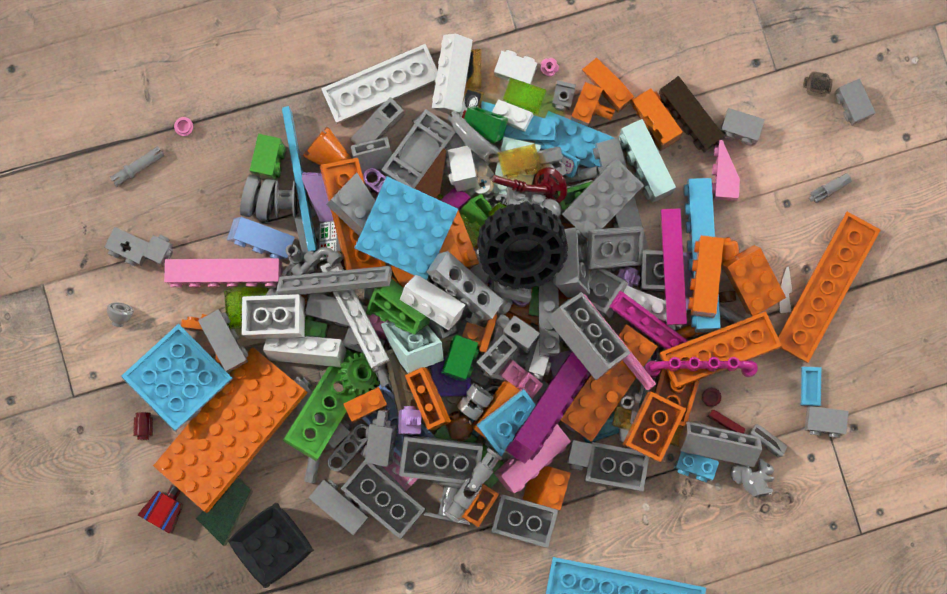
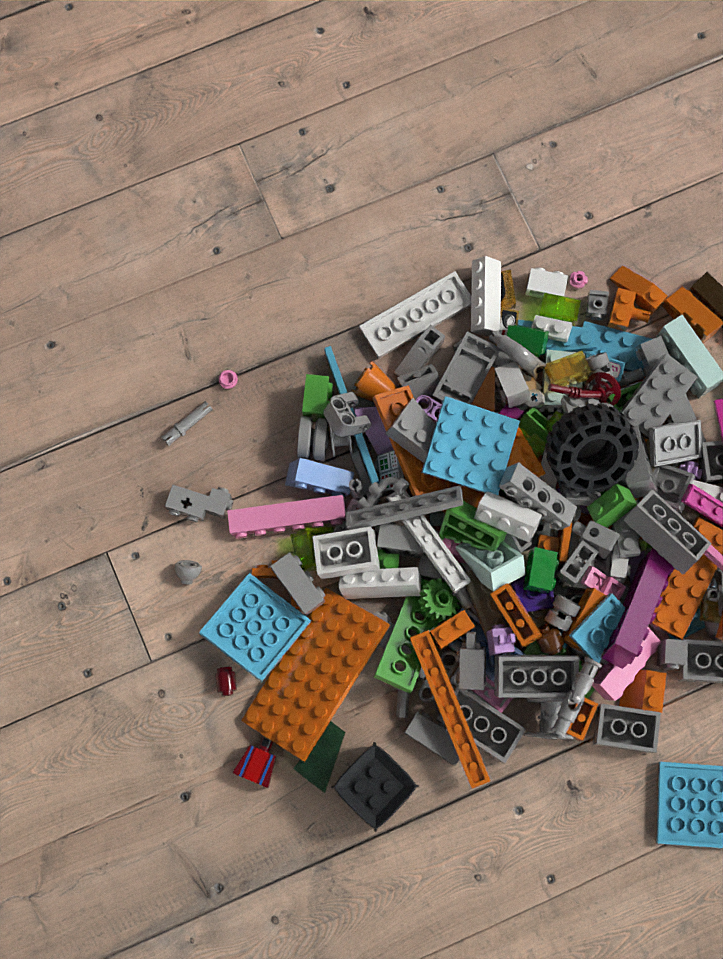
camera: 10 degrees left, 5 degrees down
(288, 180) = (341, 418): none -> light grey piece
(353, 480) = (450, 709): none -> orange plate
(538, 303) = (612, 505): none -> bright green brick

